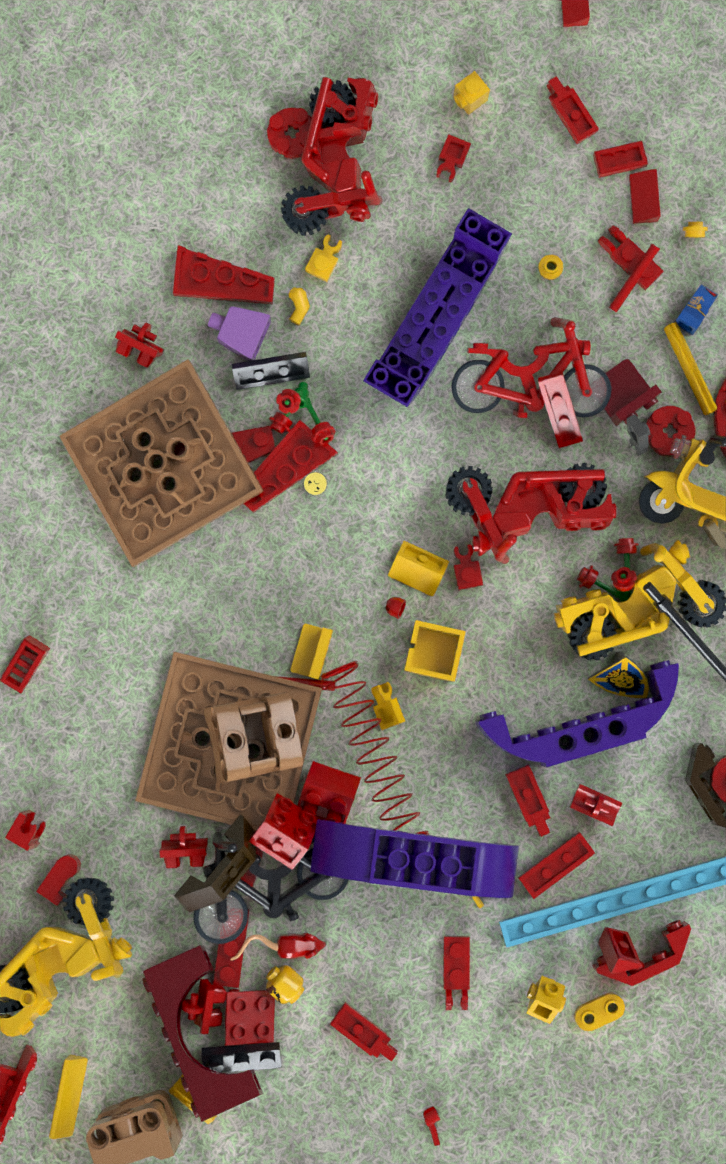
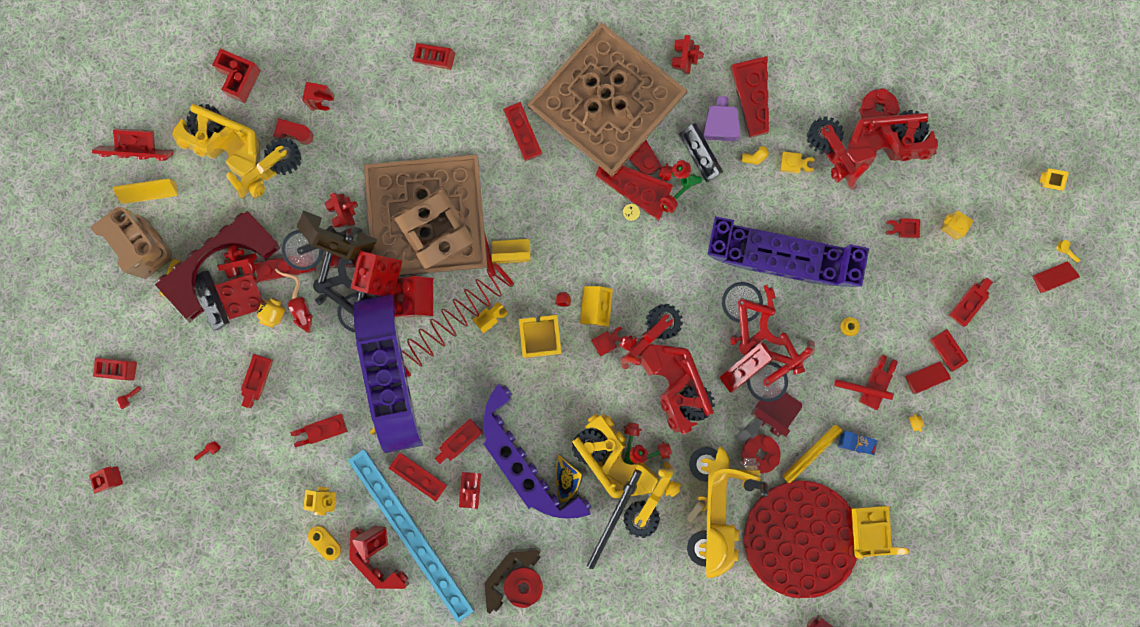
camera: 70 degrees right, 0 degrees up
(164, 584) = (522, 131): none -> red plate

